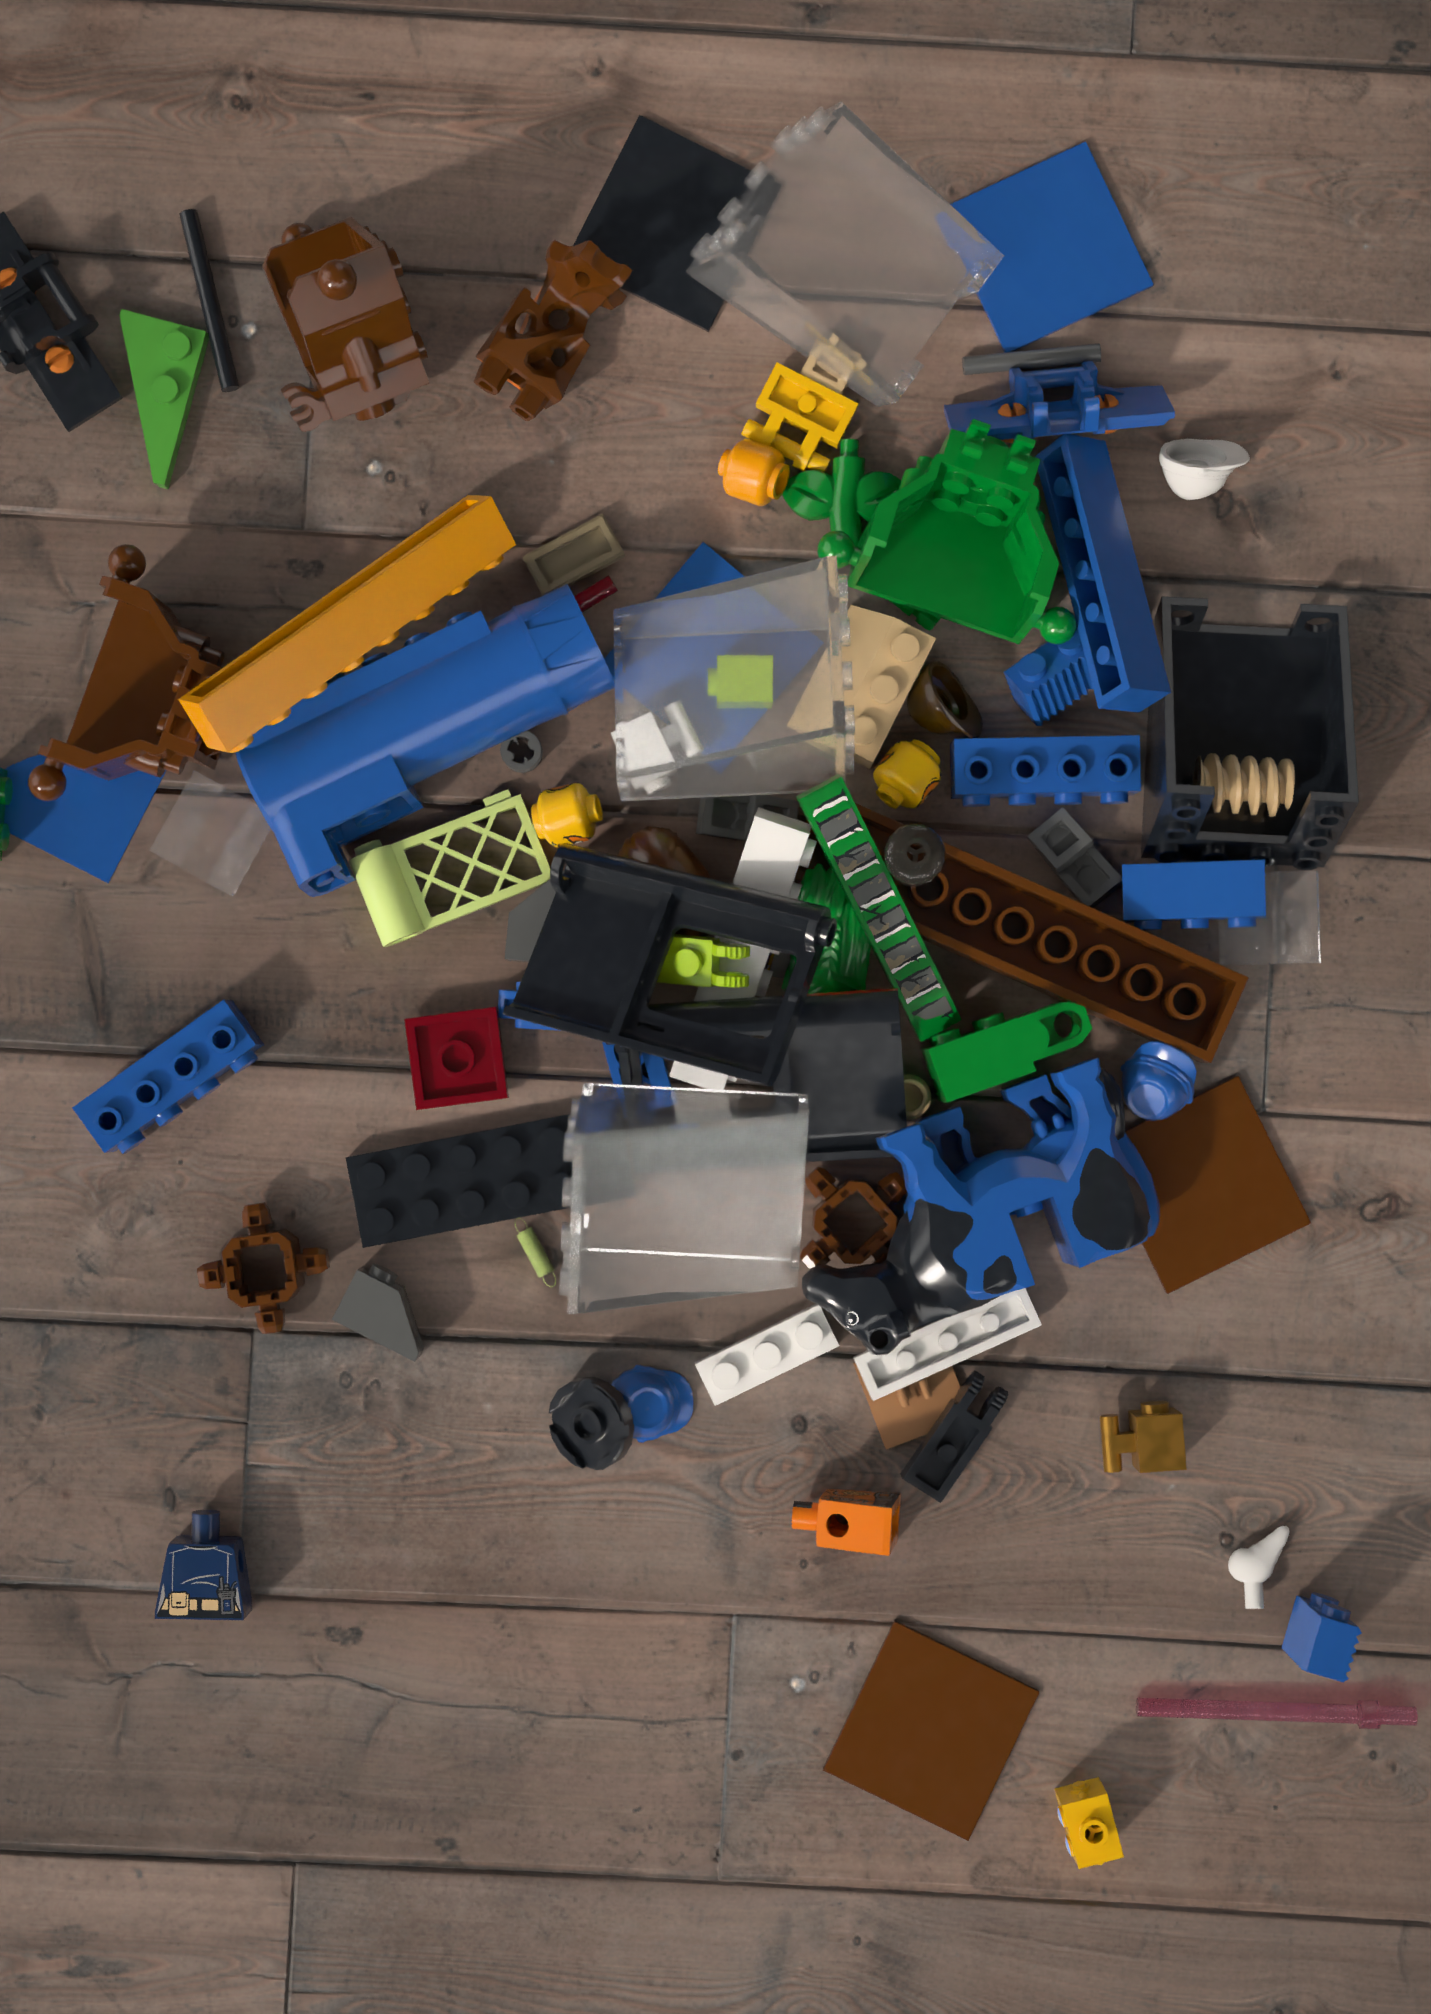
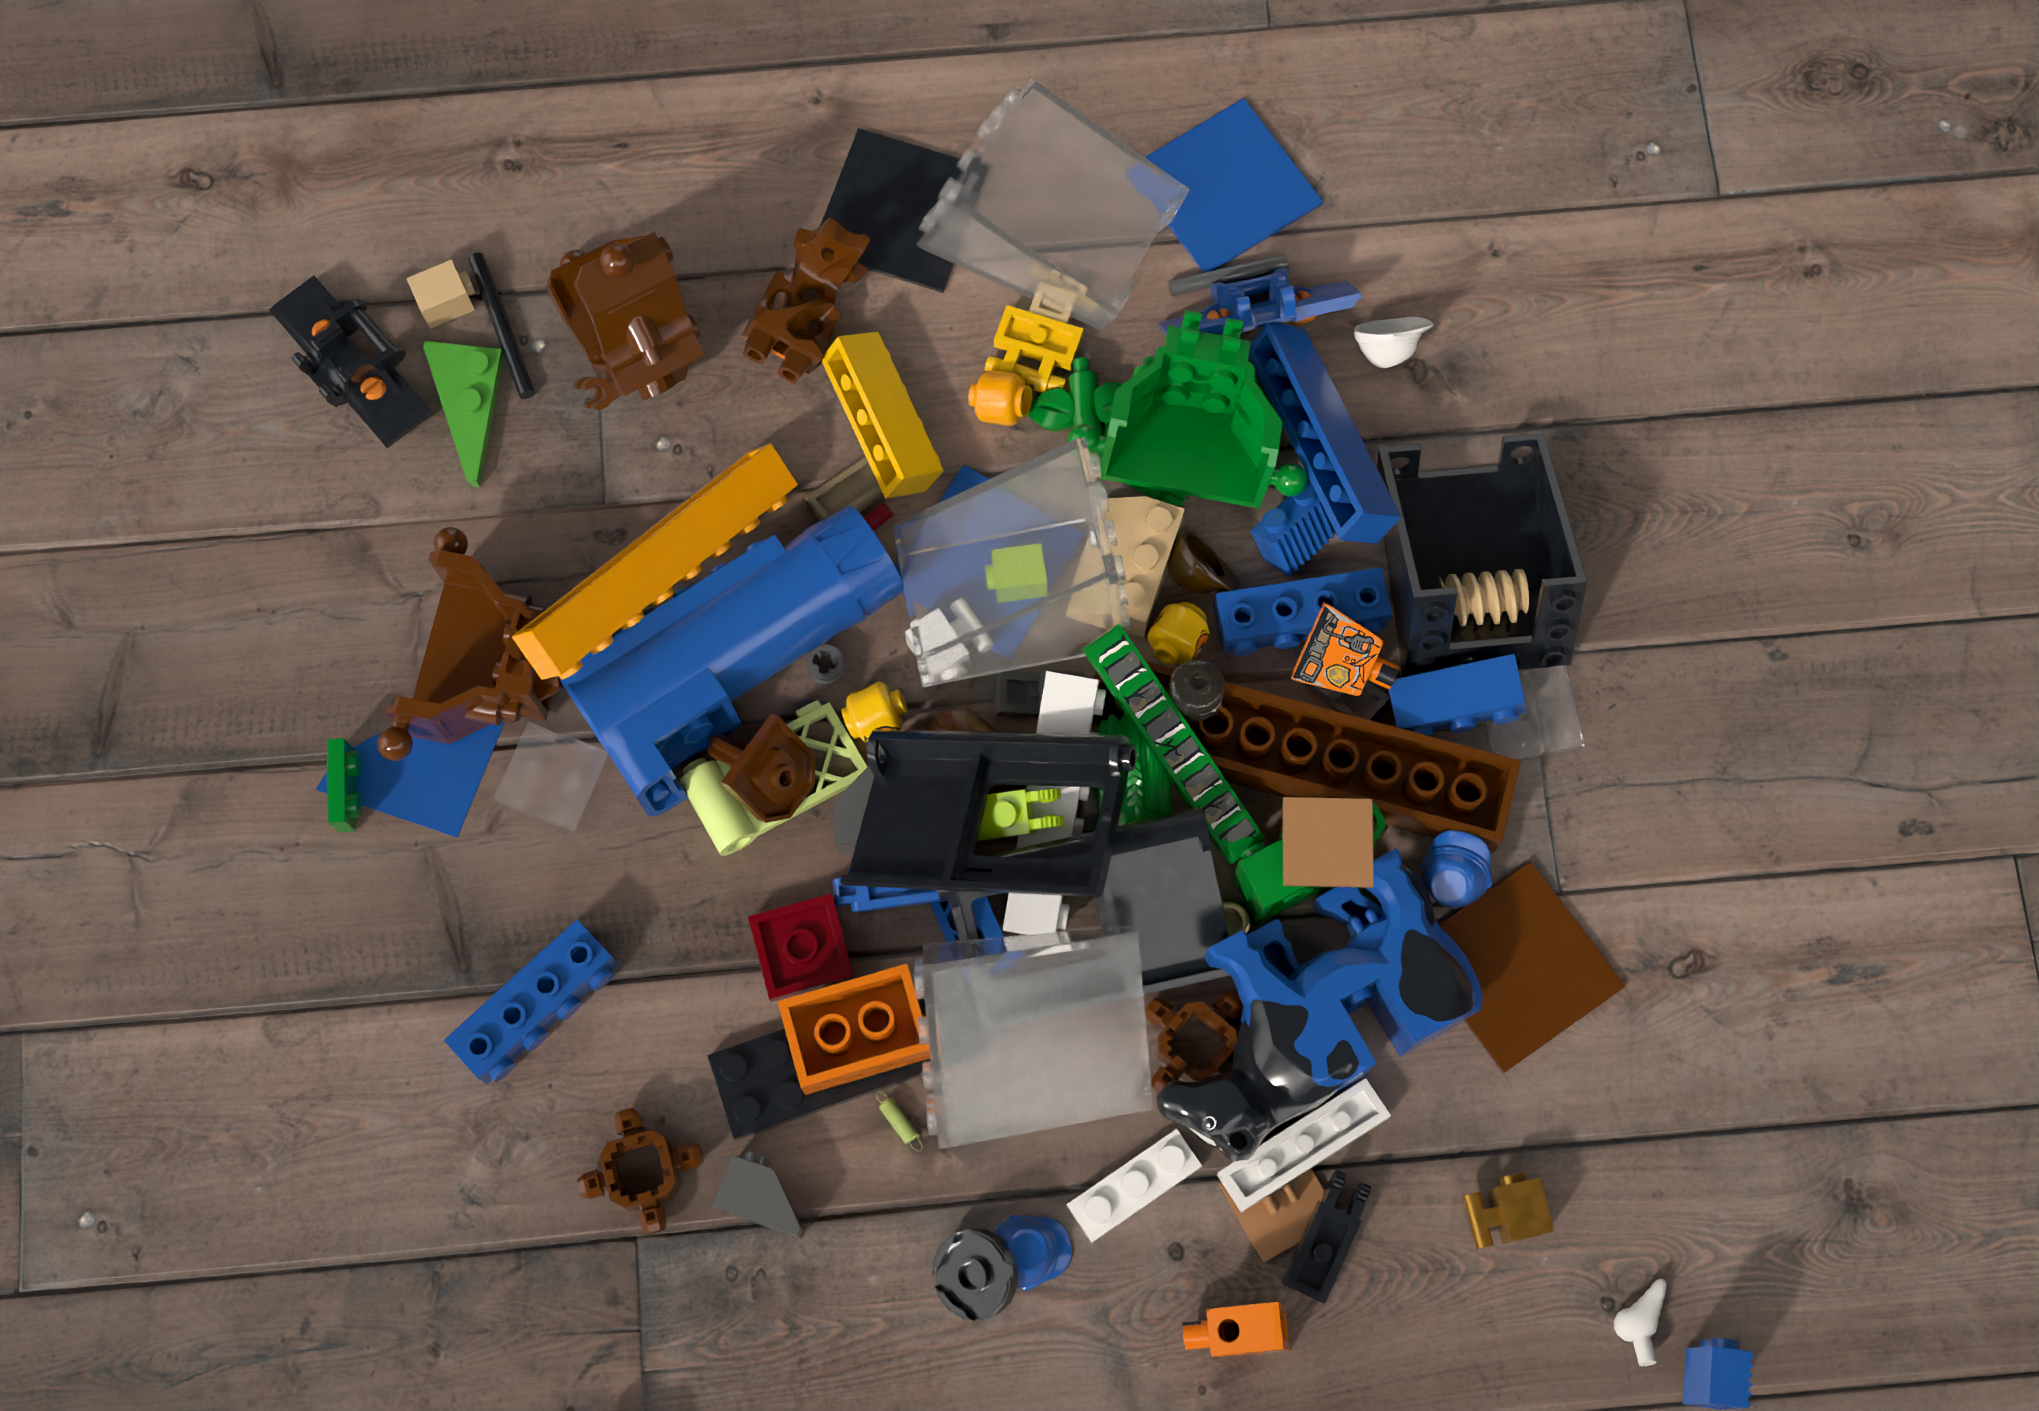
camera: 10 degrees left, 15 degrees down
(145, 254) = (442, 293): none -> tan brick
(443, 871) = (770, 772): none -> reddish brown piece
(497, 1163) = (854, 1029): none -> orange brick
(619, 474) = (882, 414): none -> yellow brick
(1025, 1047) = (1327, 842): none -> medium nougat piece
(1078, 832) = (1342, 655): none -> torso

